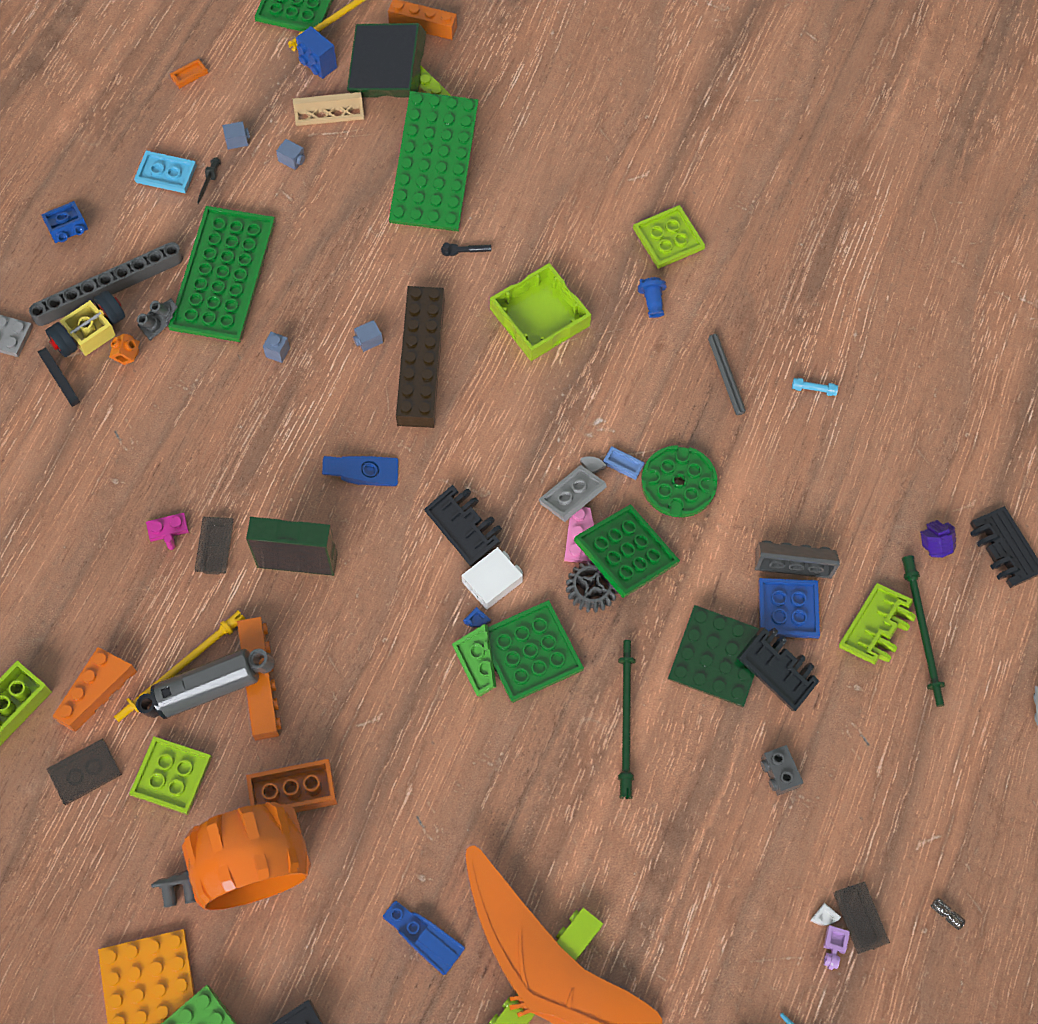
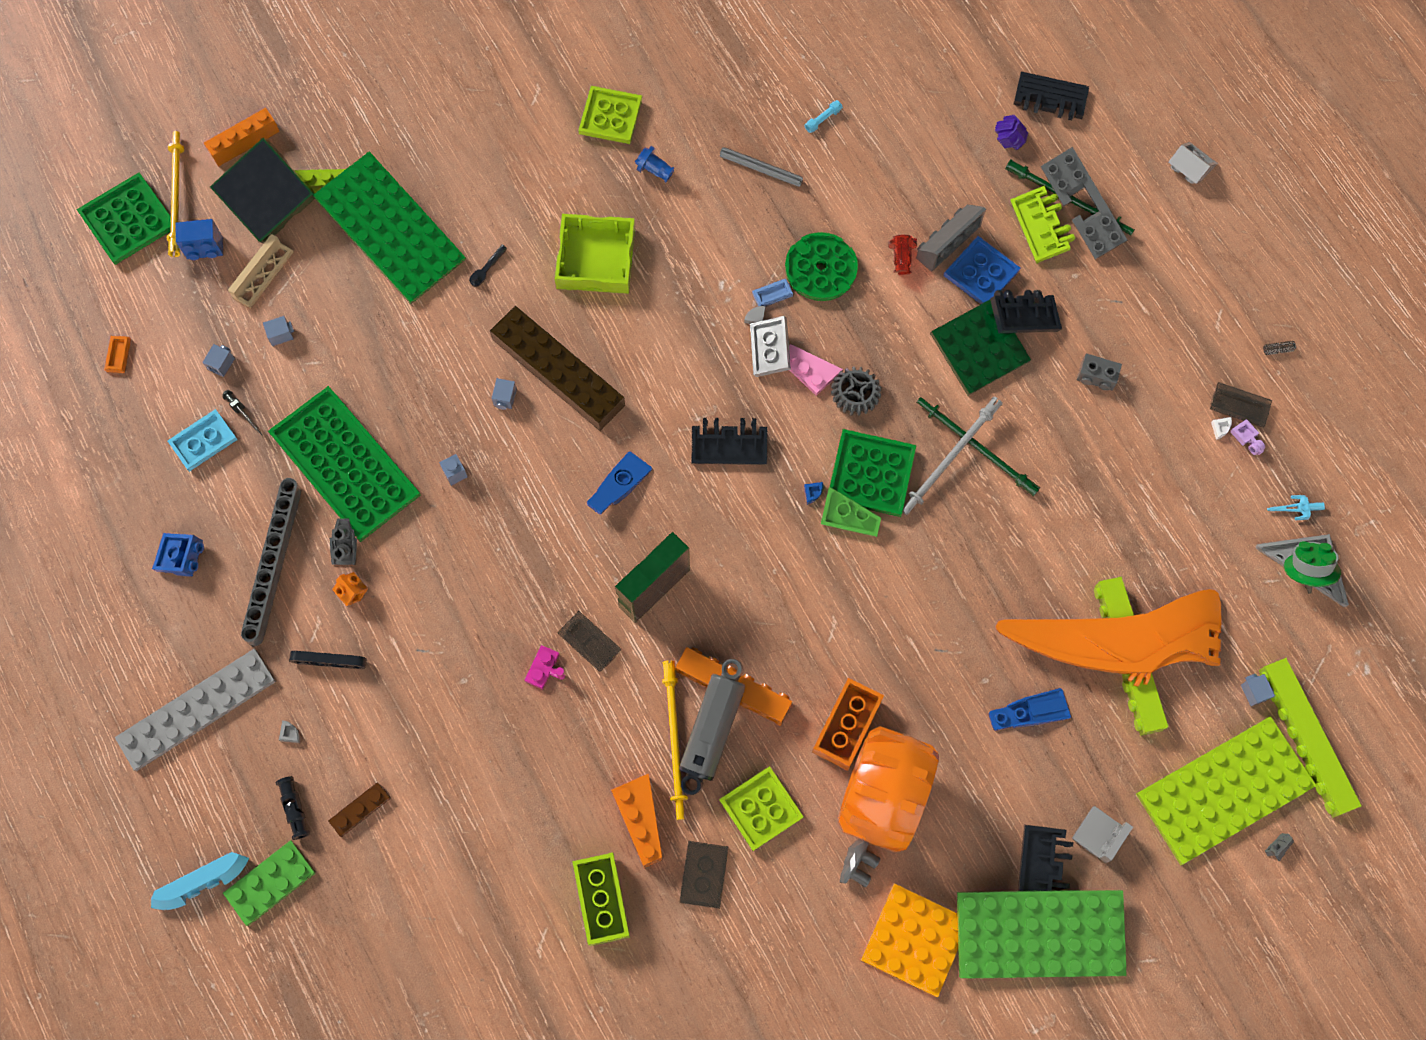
camera: 50 degrees left, 5 degrees up
(87, 326) = (302, 602): brick -> none
(492, 578) = (791, 455): white brick -> none
(626, 550) = (850, 344): green plate -> none
(656, 703) = (986, 414): none -> light grey bar
(746, 533) = (902, 249): none -> clear red piece
(934, 612) = (1069, 177): none -> dark grey plate

